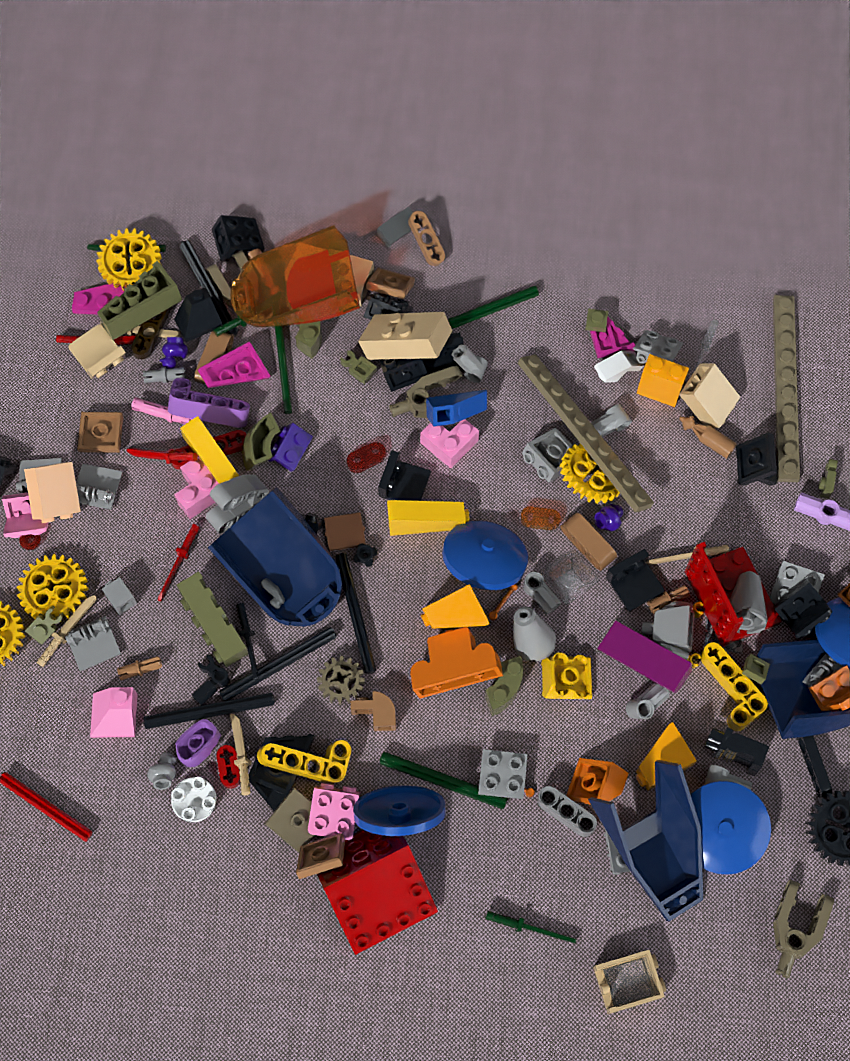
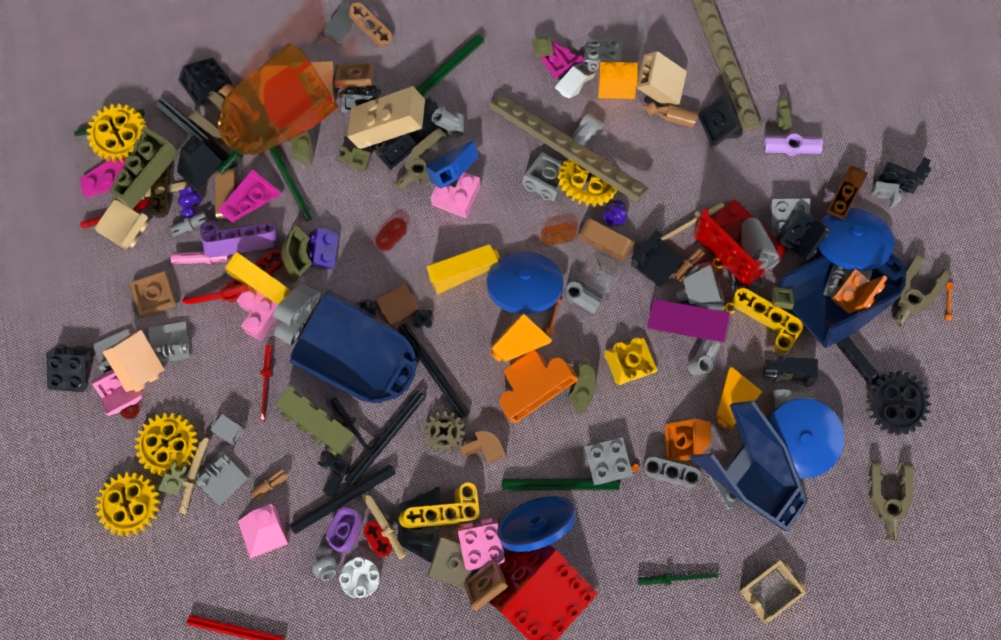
camera: 15 degrees left, 5 degrees up
(274, 590) = (358, 377): dark grey arm -> none
(402, 480) = (431, 243): black bracket -> none
(532, 635) = (590, 337): light grey cone -> none

